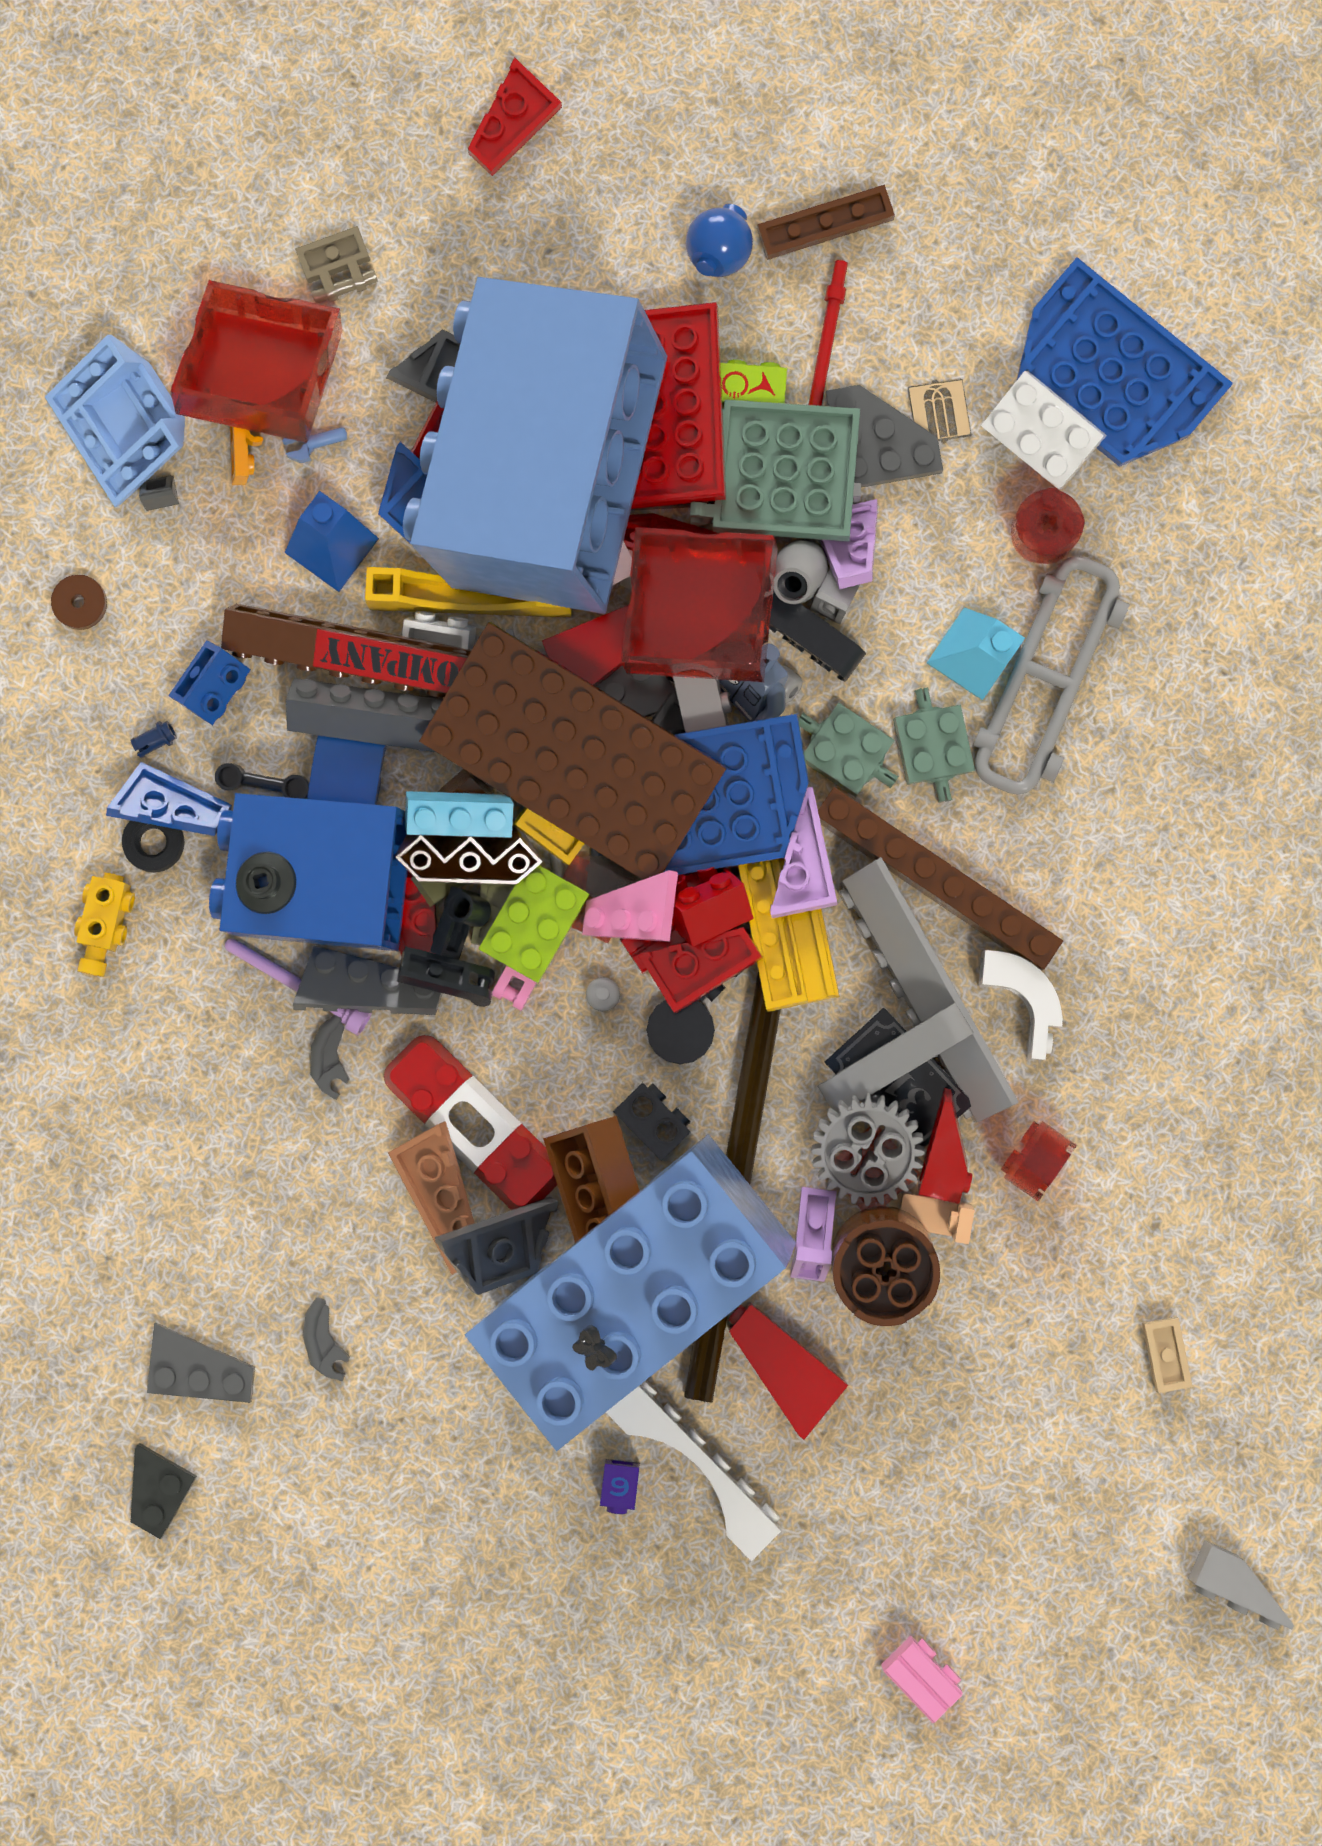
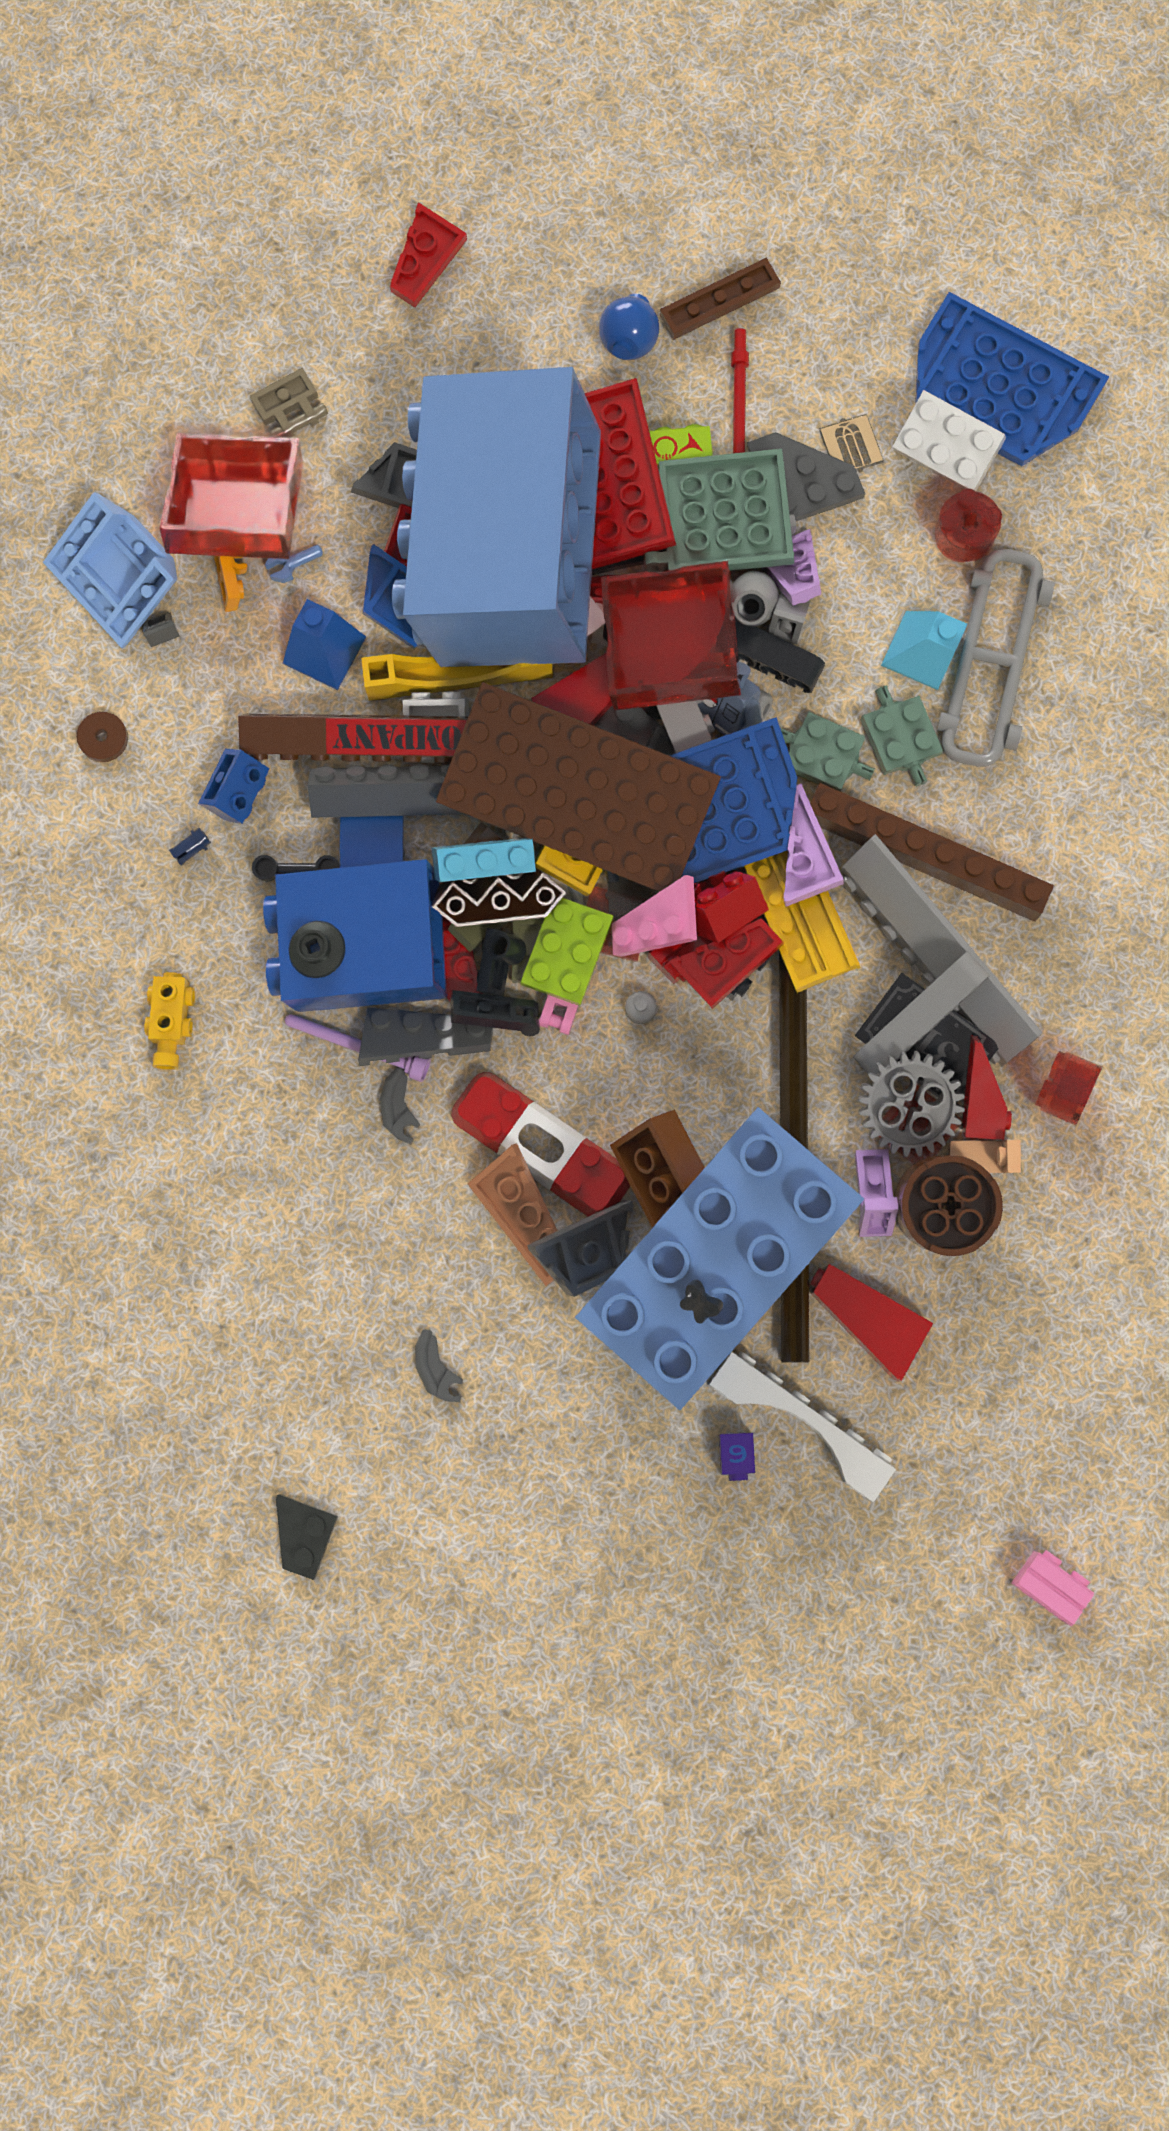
camera: 10 degrees left, 5 degrees down
(152, 863) = (190, 925): black tyre -> none
(167, 802) = (211, 899): wing -> none
(194, 1370) = (320, 1416): dark grey wing -> none
(646, 1127) = (702, 1120): black brick -> none
(680, 1035) = (718, 1031): black tile -> none
(1033, 988) = (1032, 934): white arch -> none

